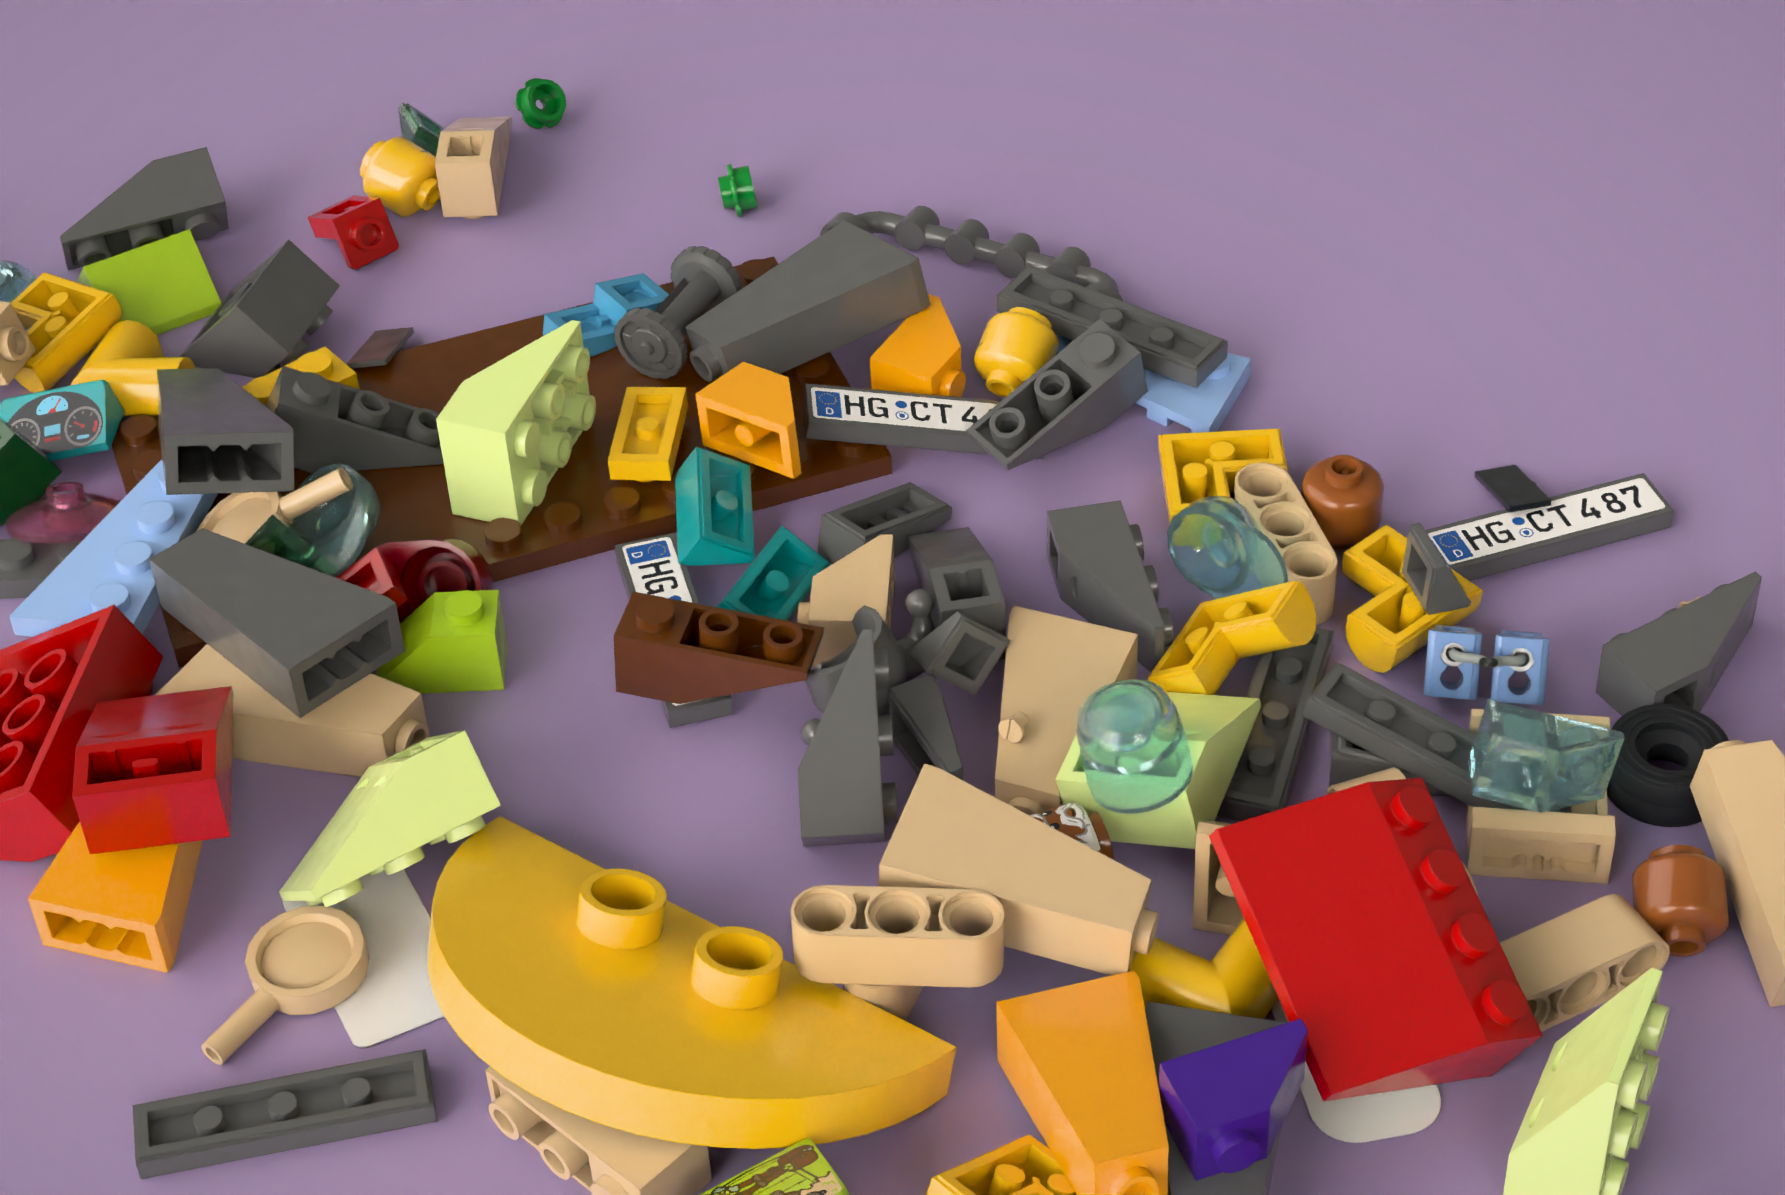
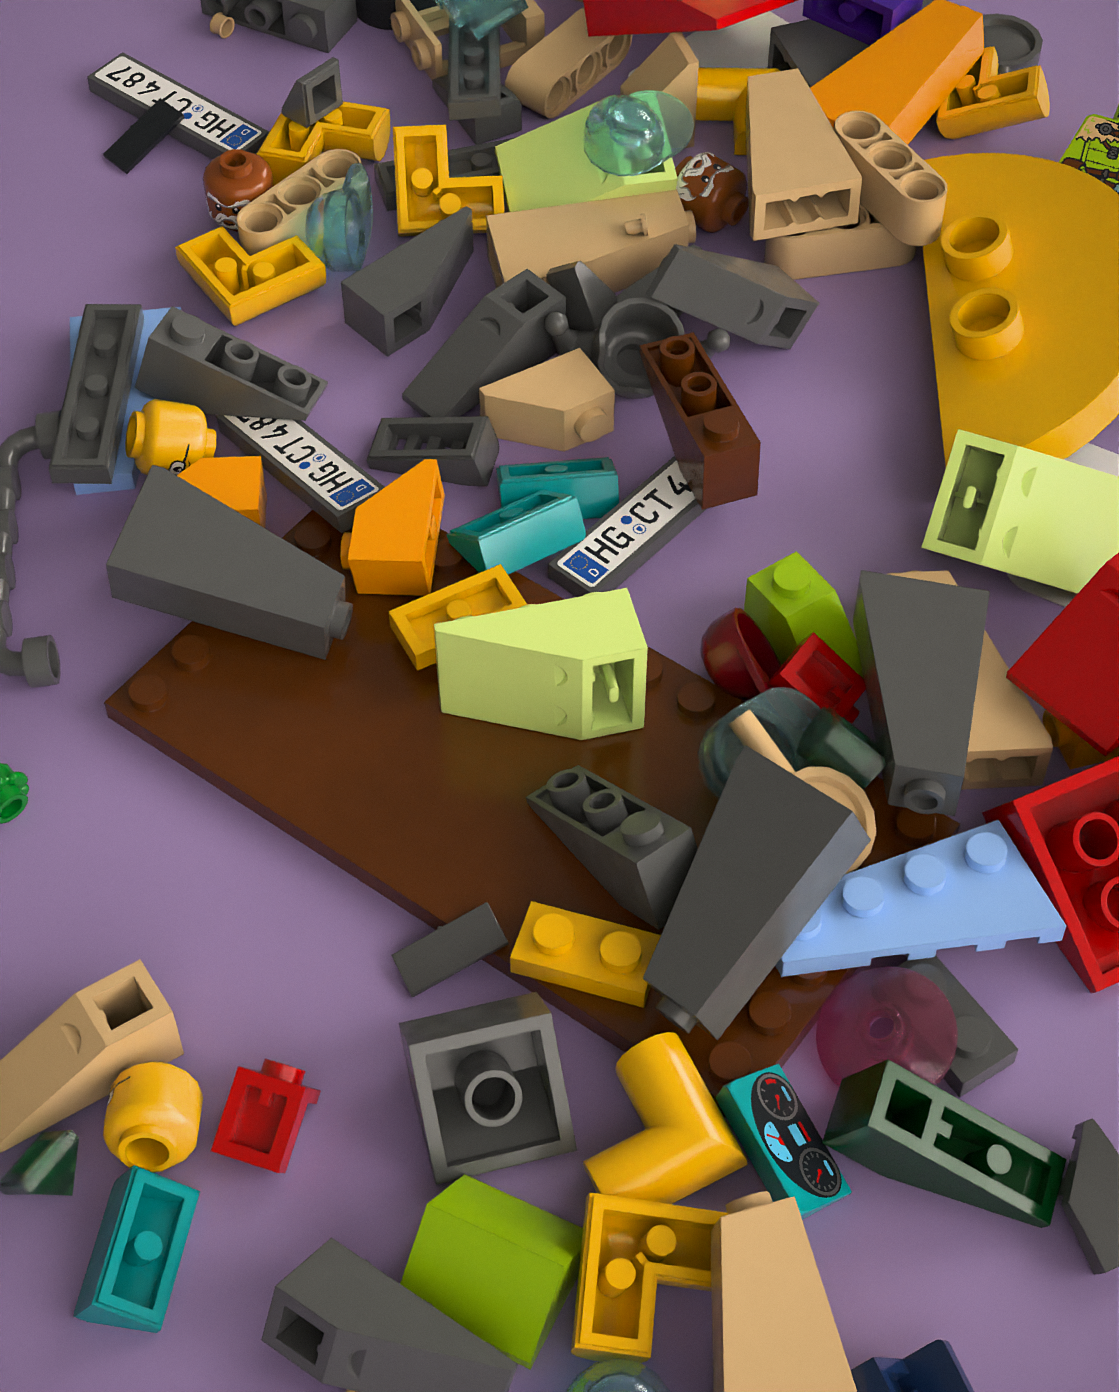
camera: 125 degrees left, 10 degrees up
(324, 159) = (137, 1252): none -> teal slope
(610, 304) = (291, 757): dark azure slope -> none
(655, 339) = (279, 673): dark grey hose -> none
(1512, 653) = (365, 71): medium blue piece -> none

